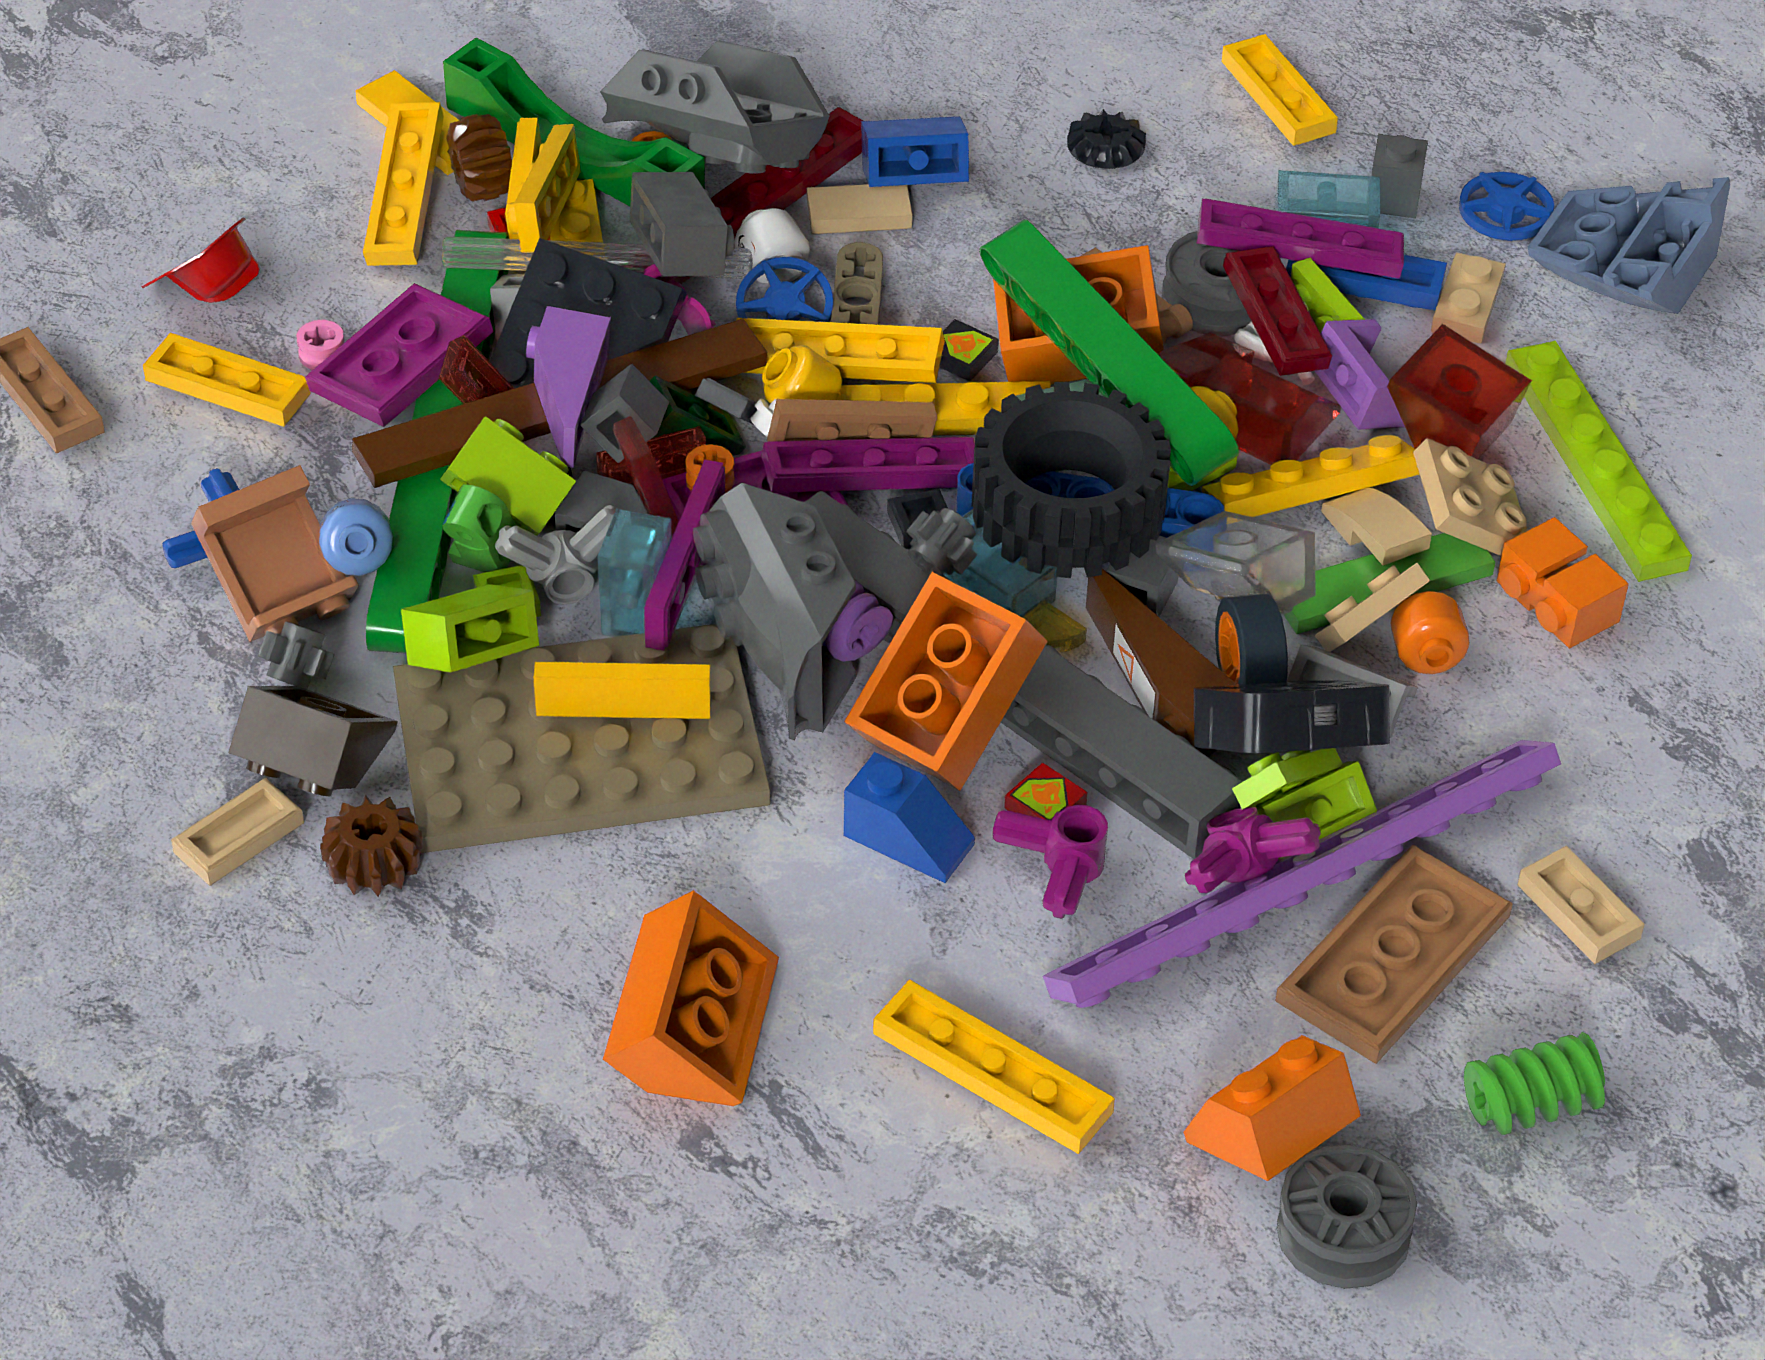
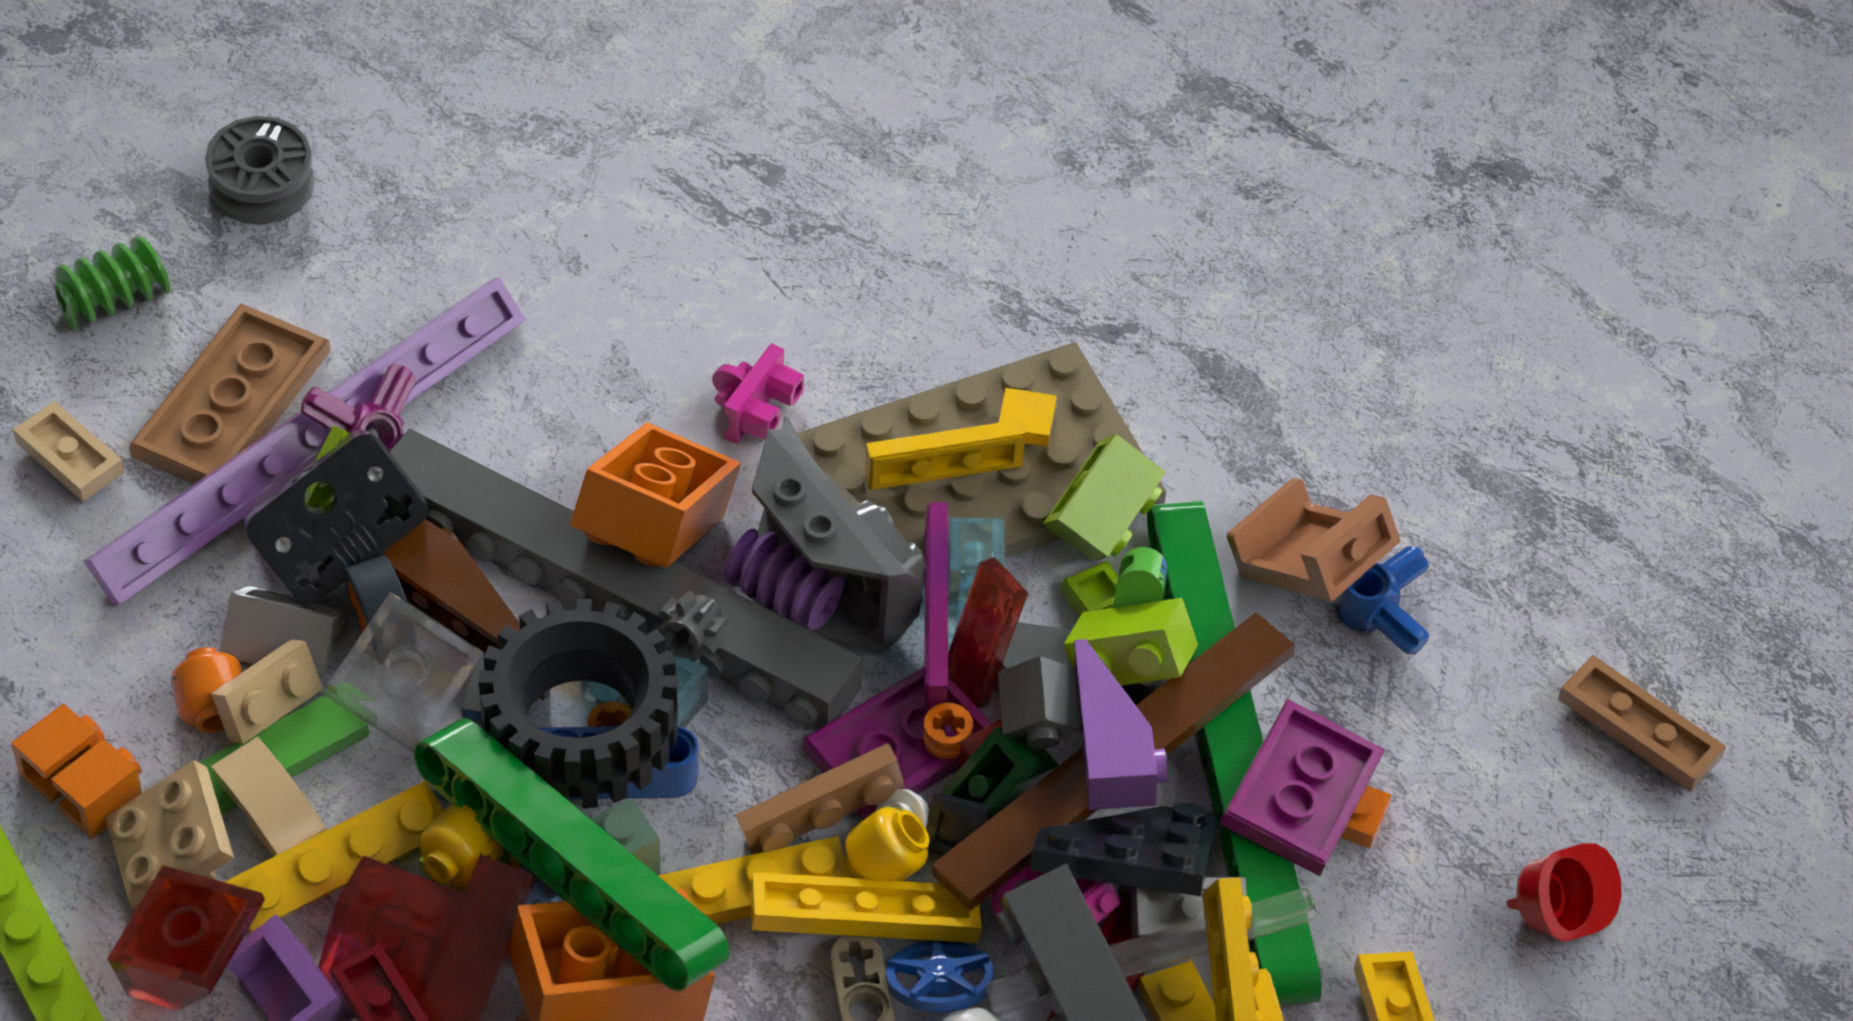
camera: 165 degrees right, 5 degrees up
(226, 379) = (1470, 769): yellow plate -> none
(237, 831) = (1229, 336): tan tile -> none
(296, 655) = (1243, 483): dark grey gear -> none
(308, 737) = (1203, 412): slope -> none
(314, 334) = (1412, 829): bright pink bush -> none
(355, 537) = (1244, 552): medium blue head -> none
(371, 845) = (1110, 322): reddish brown gear -> none
(470, 373) = (1204, 760): clear red tile -> none
(515, 734) = (1034, 410): none -> yellow tile
(561, 558) = (1062, 602): light grey axle -> none
(692, 1004) = (803, 239): orange slope -> none
(805, 838) = (748, 389): none -> dark pink hips
(866, 463) = (712, 812): magenta tile -> none
(905, 818) = (674, 406): blue slope -> none
(907, 508) = (730, 751): black tile -> none
(966, 350) = (744, 970): tile -> none
(994, 1066) = (553, 239): yellow plate -> none
(1044, 794) = (553, 474): tile -> none
(1072, 849) = (518, 417): magenta axle -> none
(1278, 1109) = (327, 212): orange slope -> none

